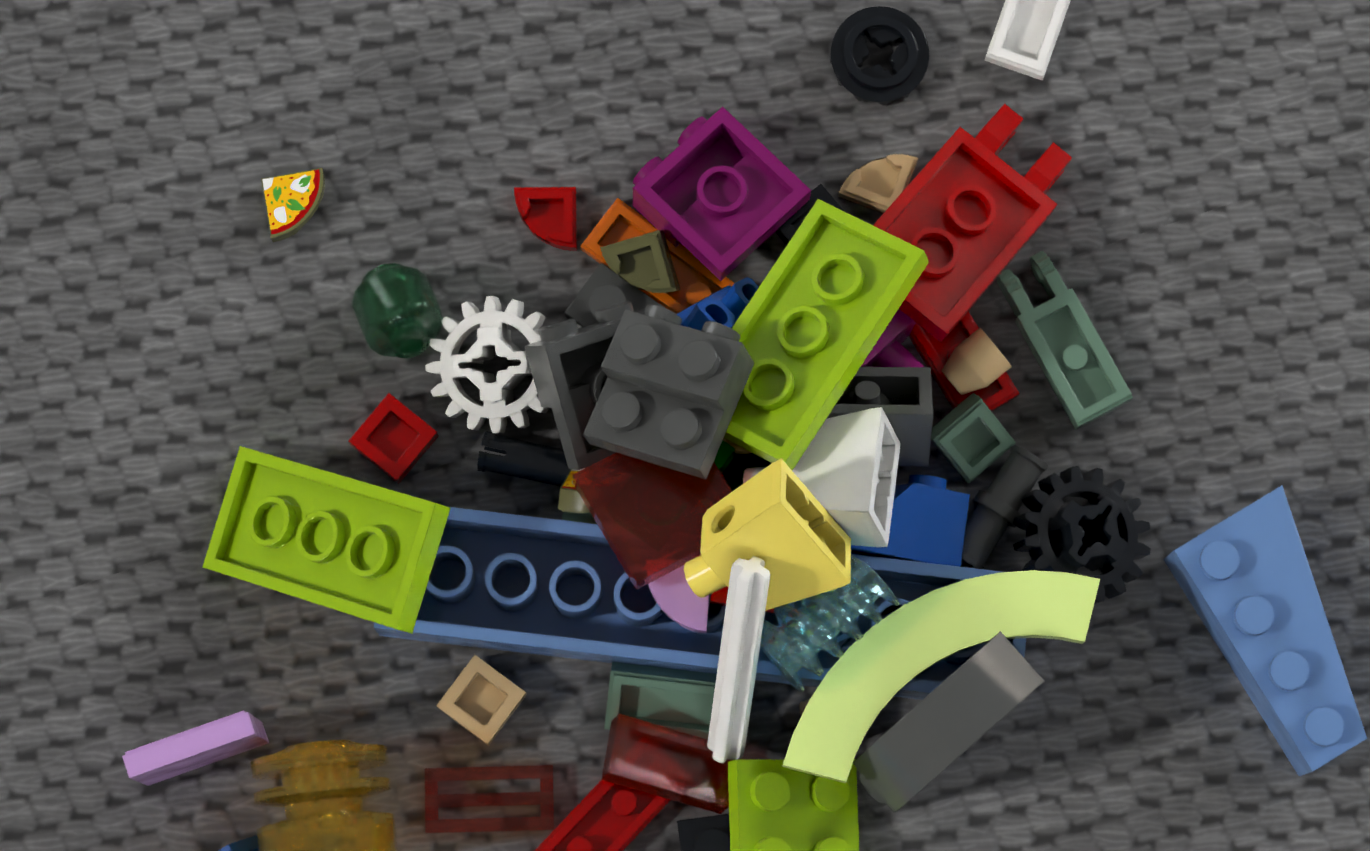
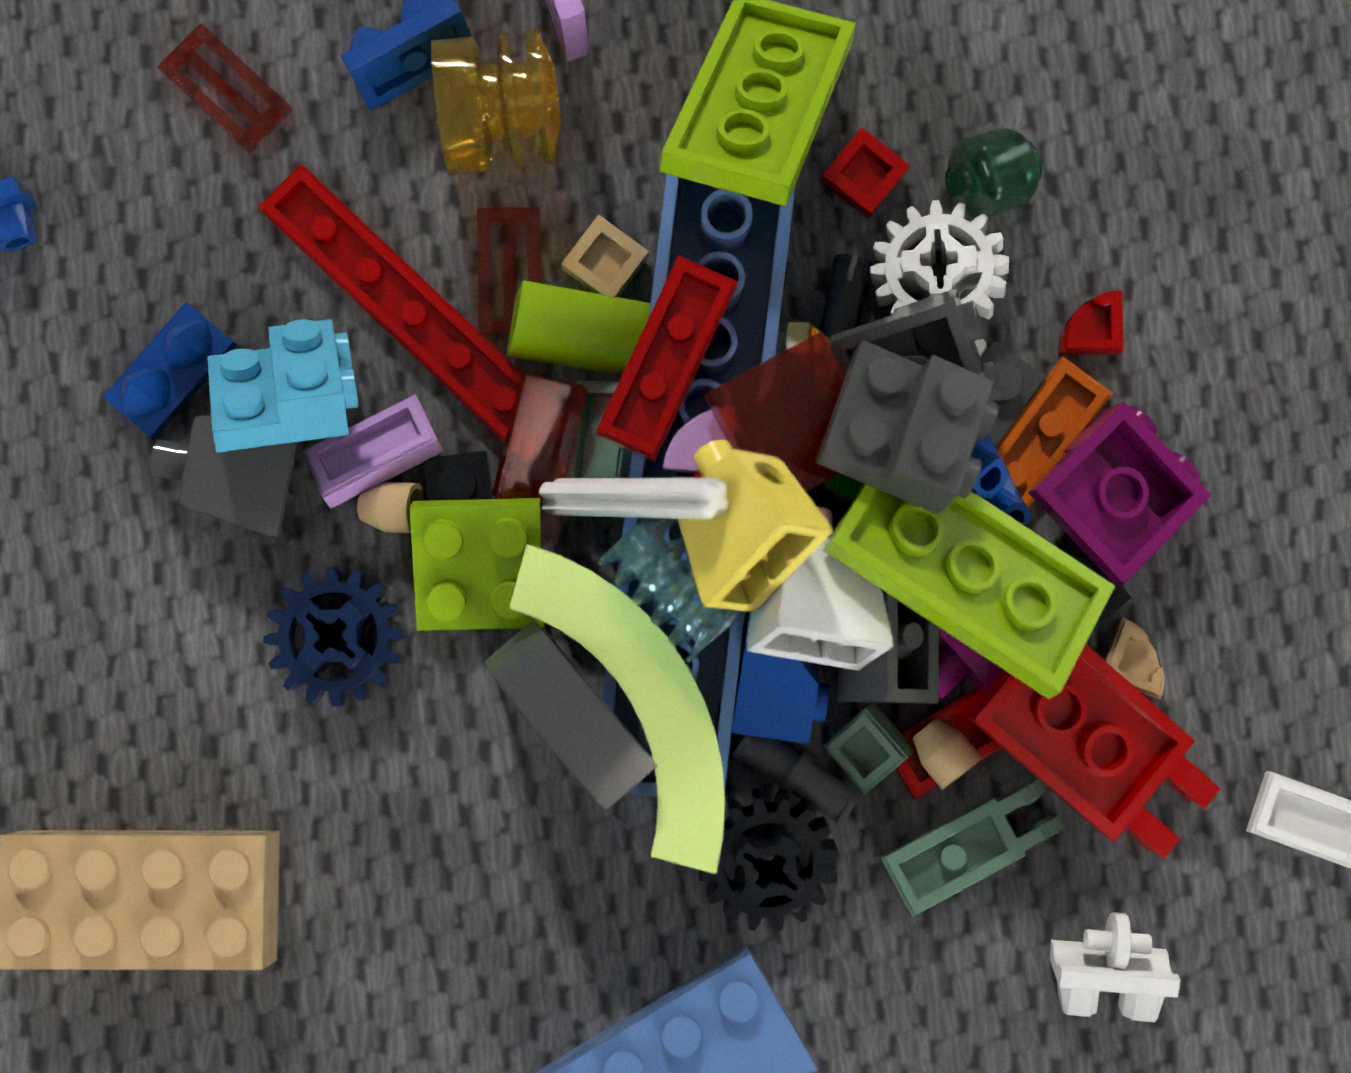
camera: 90 degrees right, 5 degrees up
(292, 200) = (1104, 73): tile -> none
(556, 726) = (575, 327): none -> lime brick
(595, 629) = (666, 358): none -> red tile
(643, 262) = (1046, 417): olive tile -> none
(884, 28) = (1297, 668): black gear -> none
(1172, 207) = (1113, 963): none -> white hips

